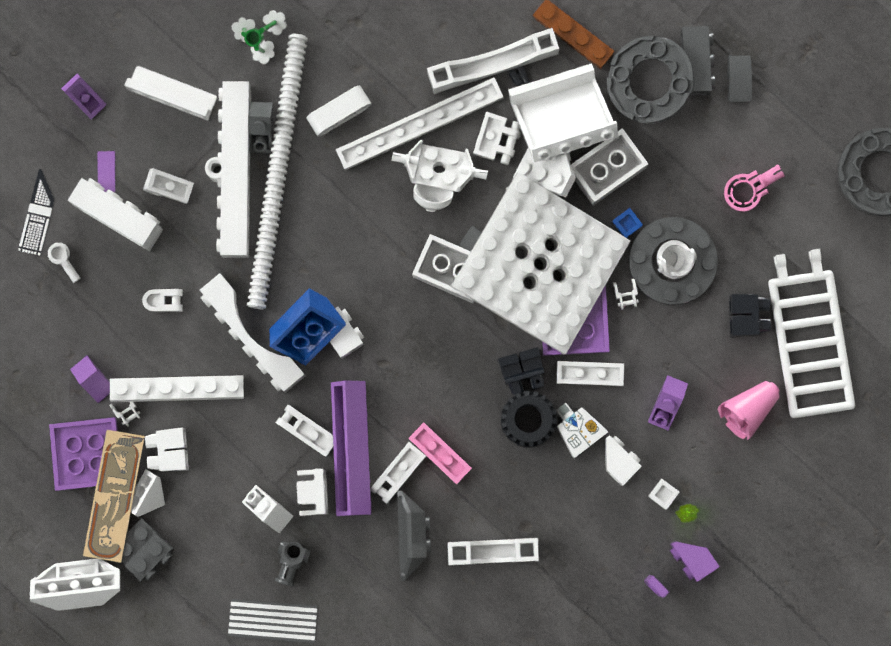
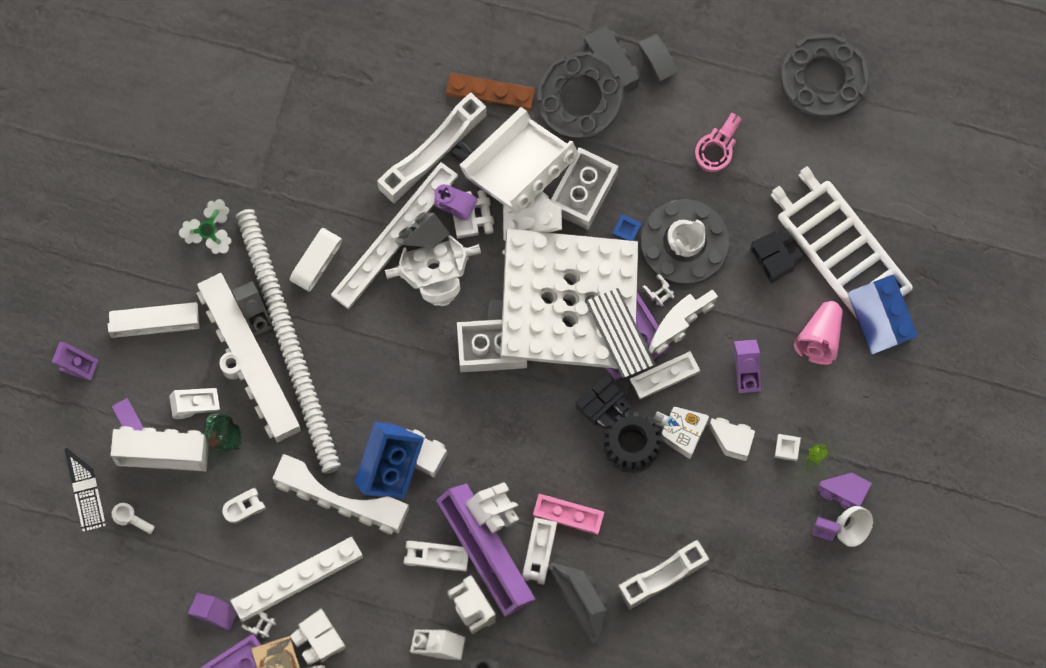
camera: 35 degrees left, 10 degrees down
(178, 226) = (222, 432): none -> clear green hair
(376, 412) = (493, 508): none -> white hips
(444, 136) = (424, 232): none -> dark grey slope
(489, 124) = (457, 203): none -> medium lavender piece
(569, 317) = (620, 332): none -> sticker
(623, 332) = (678, 320): none -> white slope
(685, 598) = (857, 529): none -> white piece
(812, 419) = (882, 314): none -> blue slope

